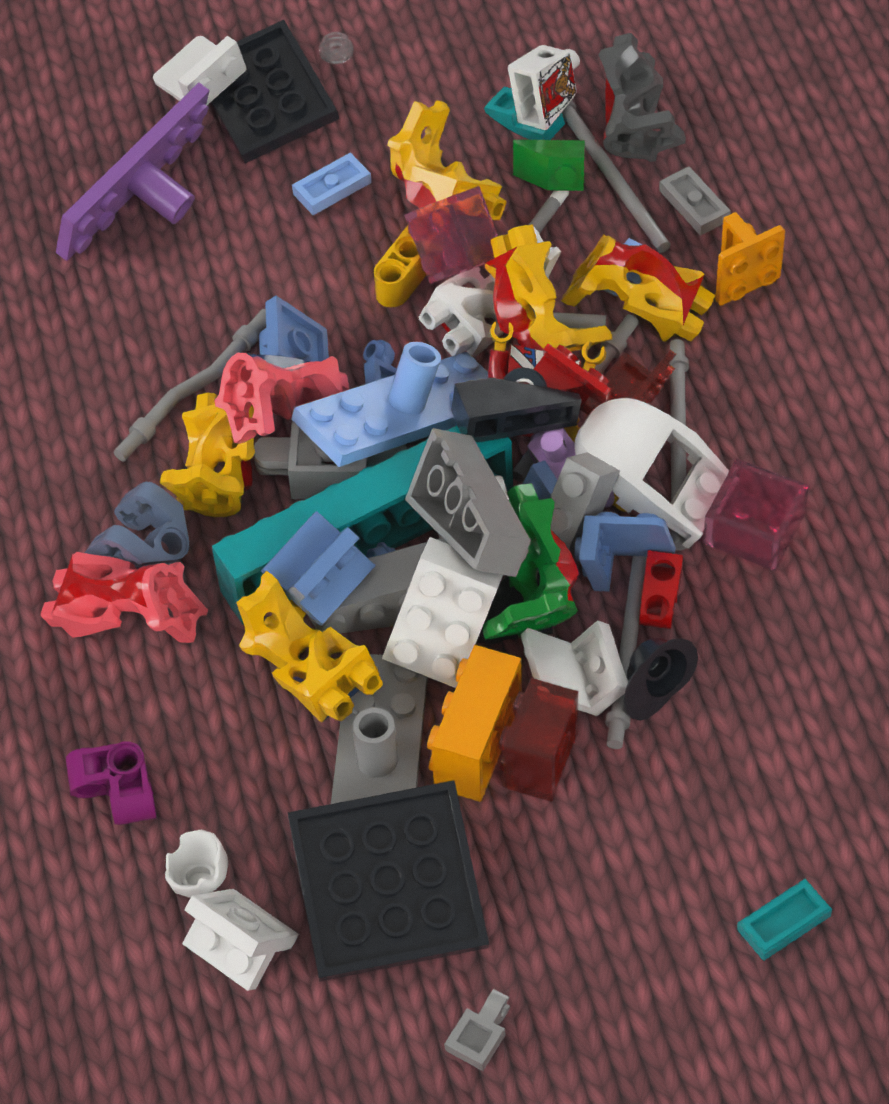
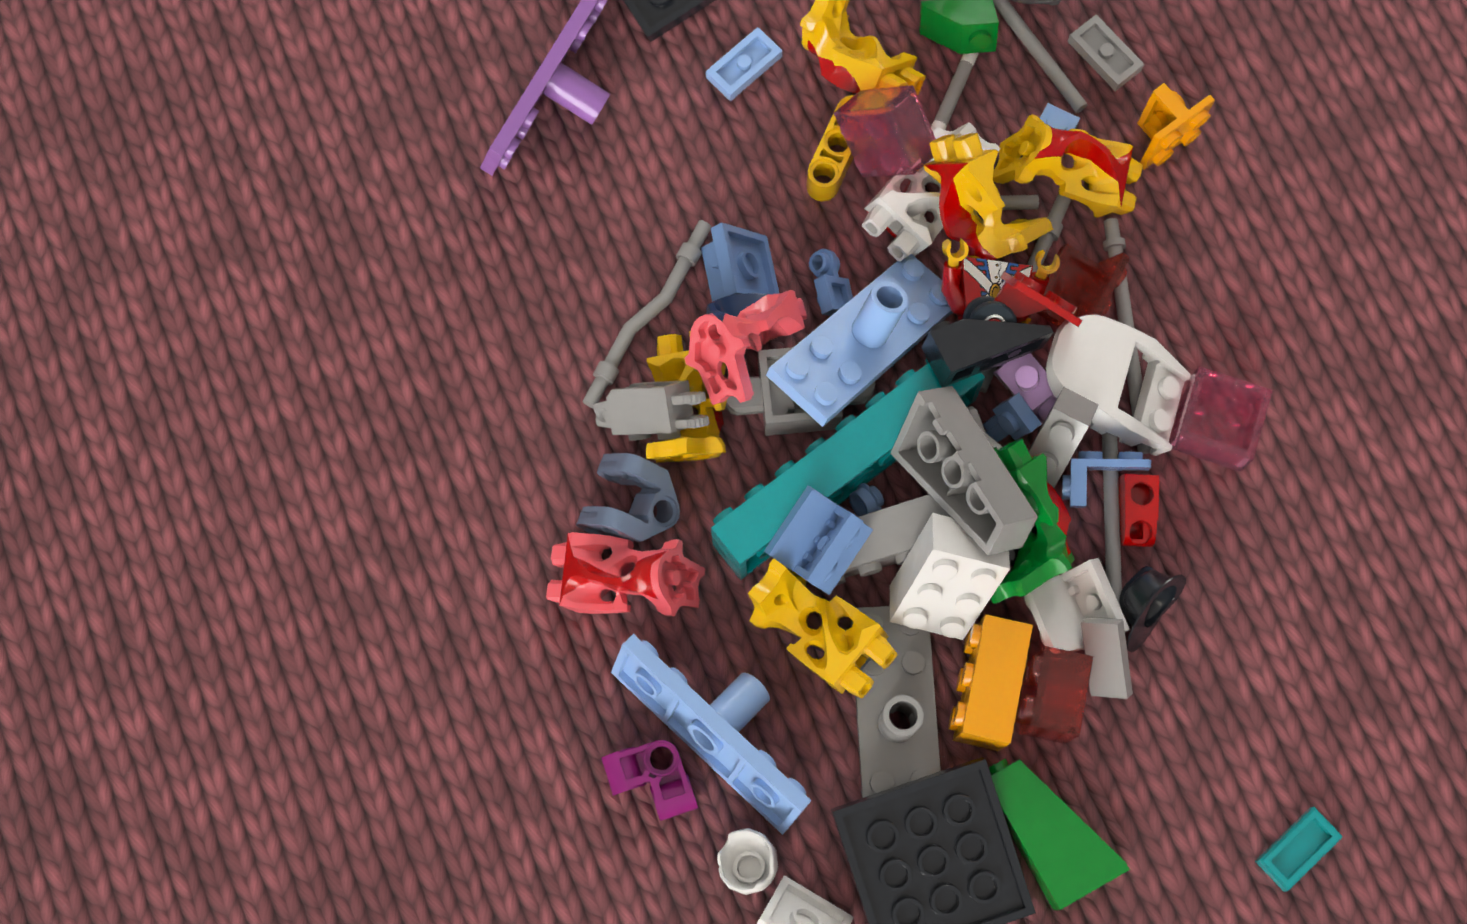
camera: 10 degrees left, 20 degrees up
(176, 447) = (651, 409): none -> light grey hinge
(182, 740) = (714, 729): none -> light blue plate
(520, 878) = (1052, 839): none -> green slope
(602, 713) = (1110, 664): none -> light grey tile

